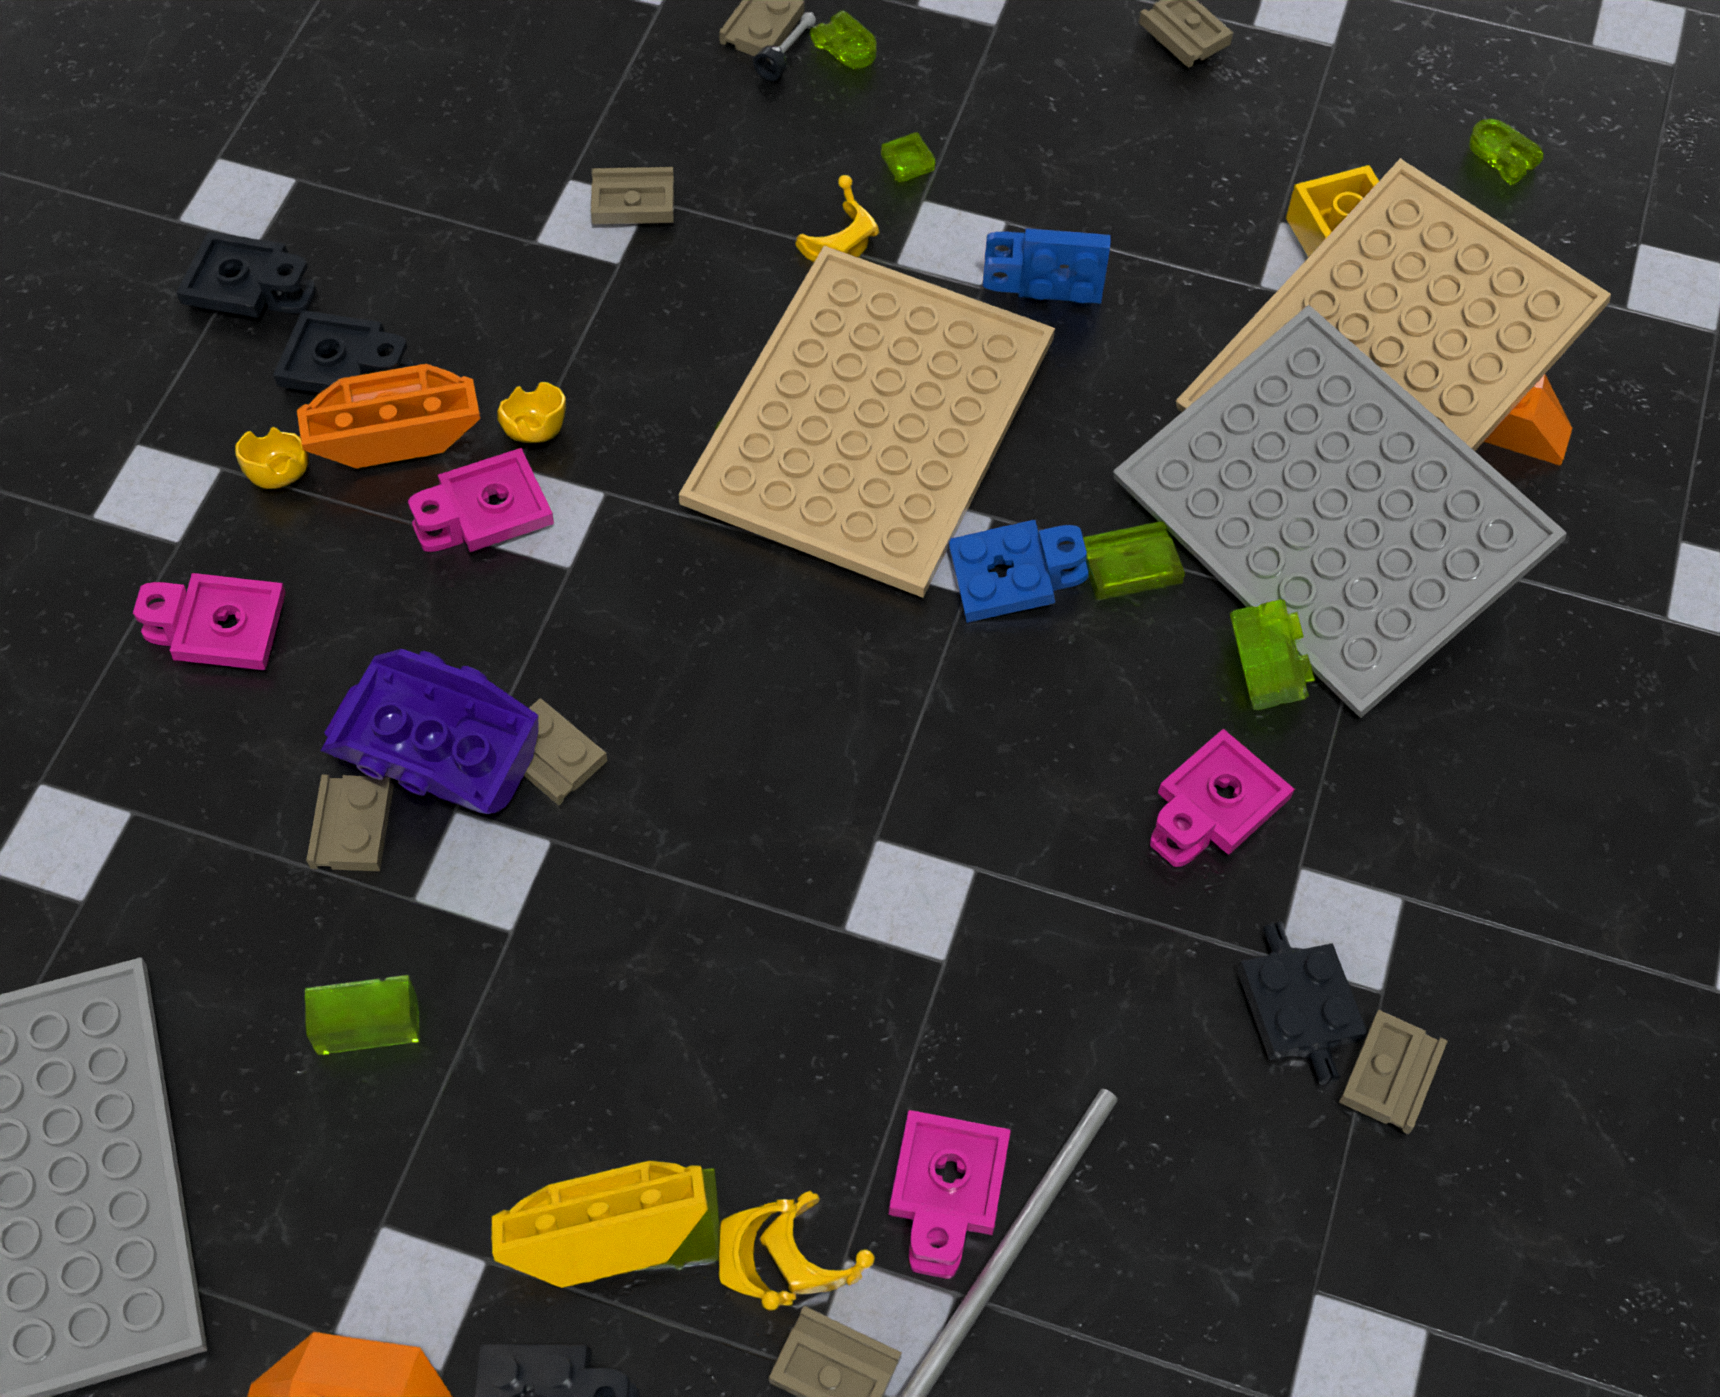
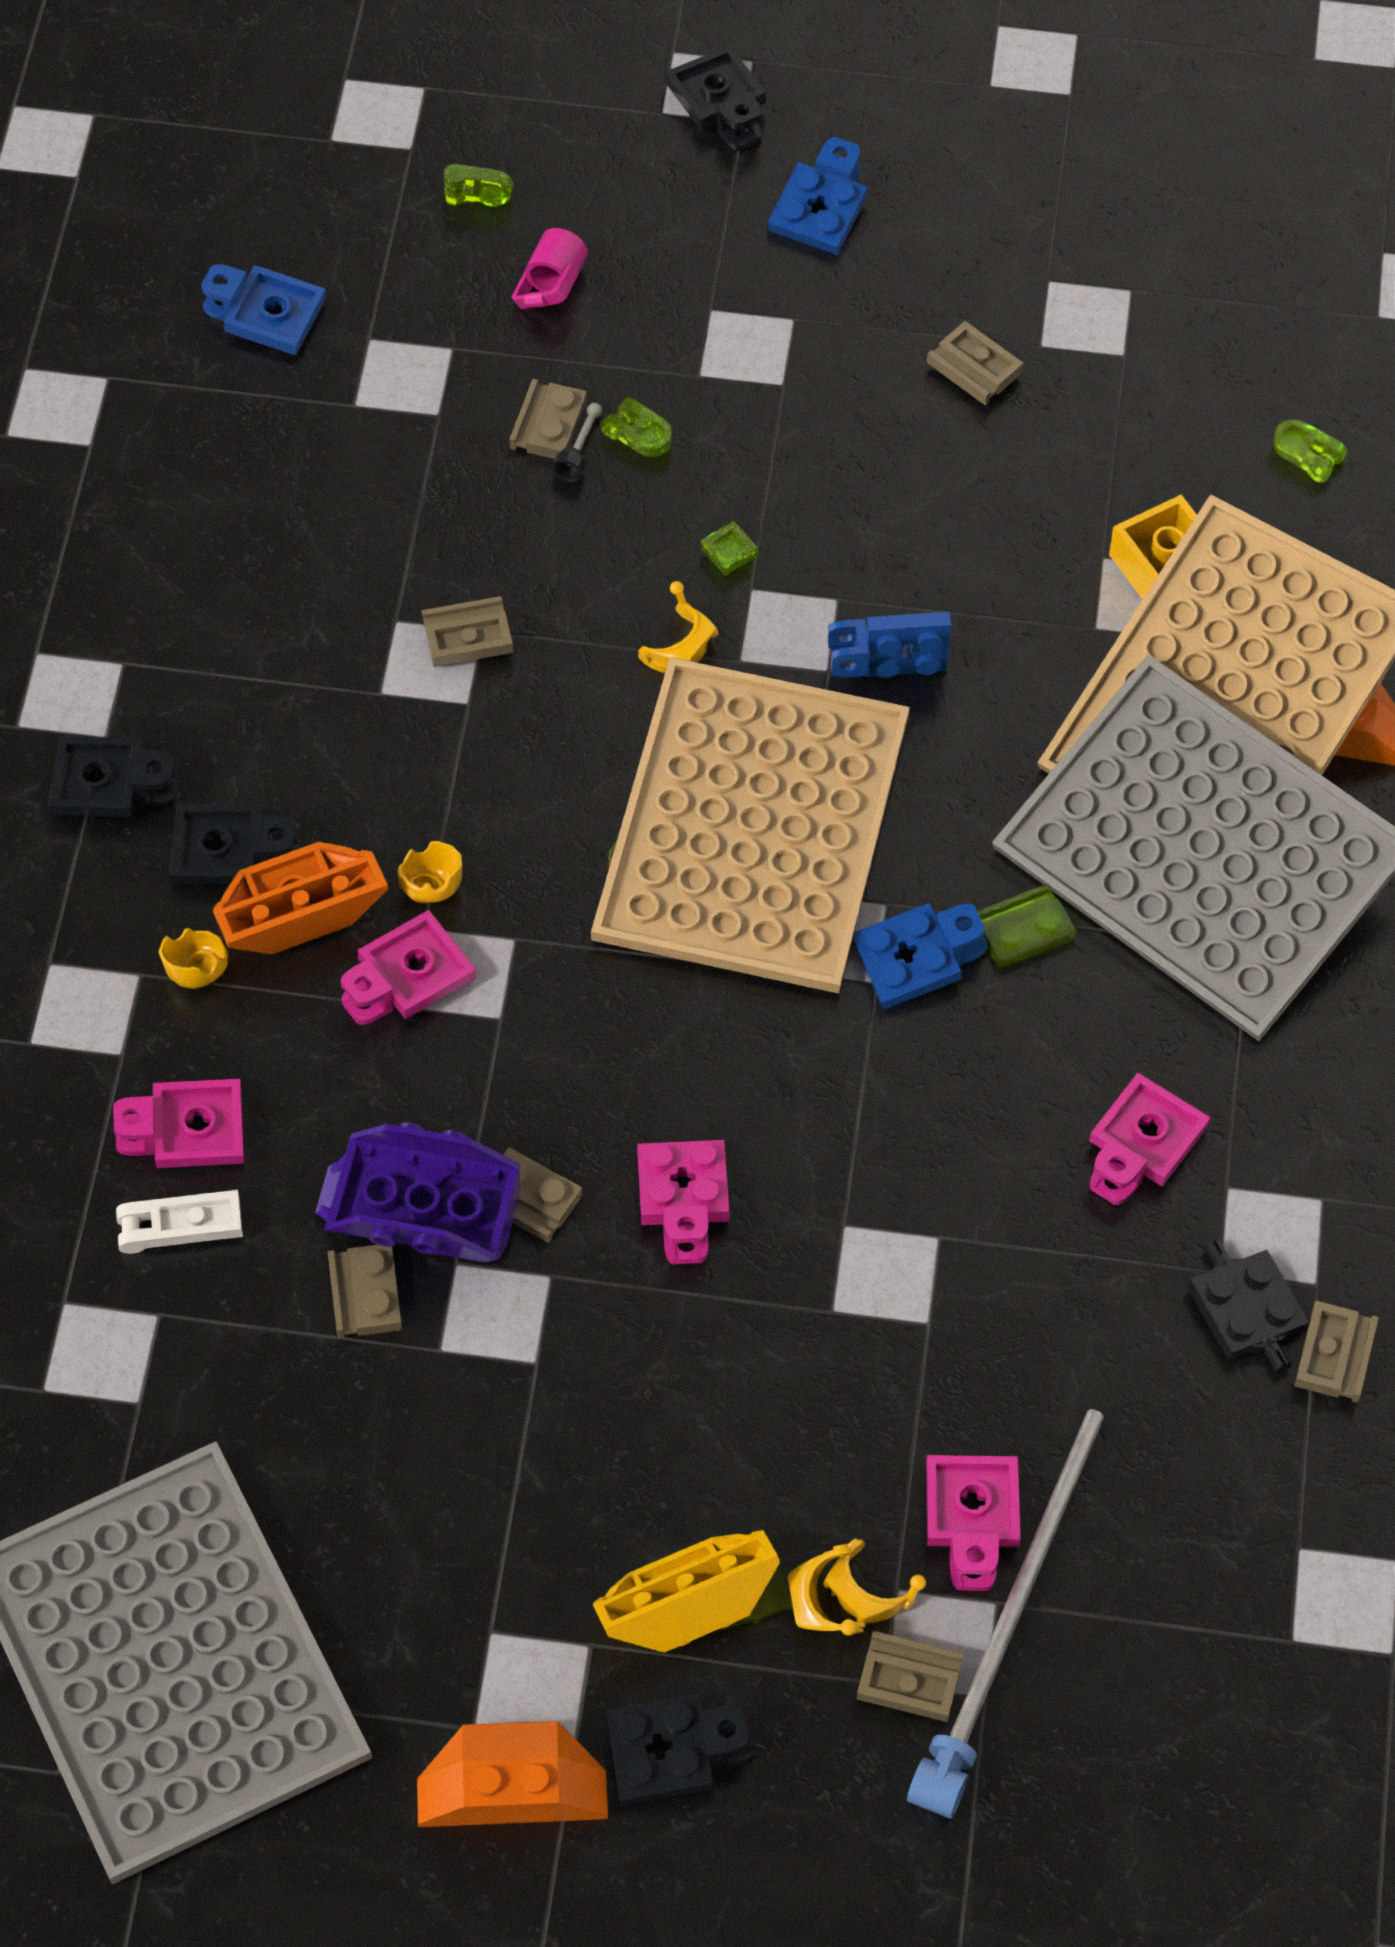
camera: 10 degrees left, 0 degrees up
(180, 717) = (179, 1220): none -> white plate
(362, 1015) = (429, 1456): clear neon green brick -> none
(704, 794) = (688, 1209): none -> dark pink plate
(1270, 654) = (1168, 996): clear neon green brick -> none

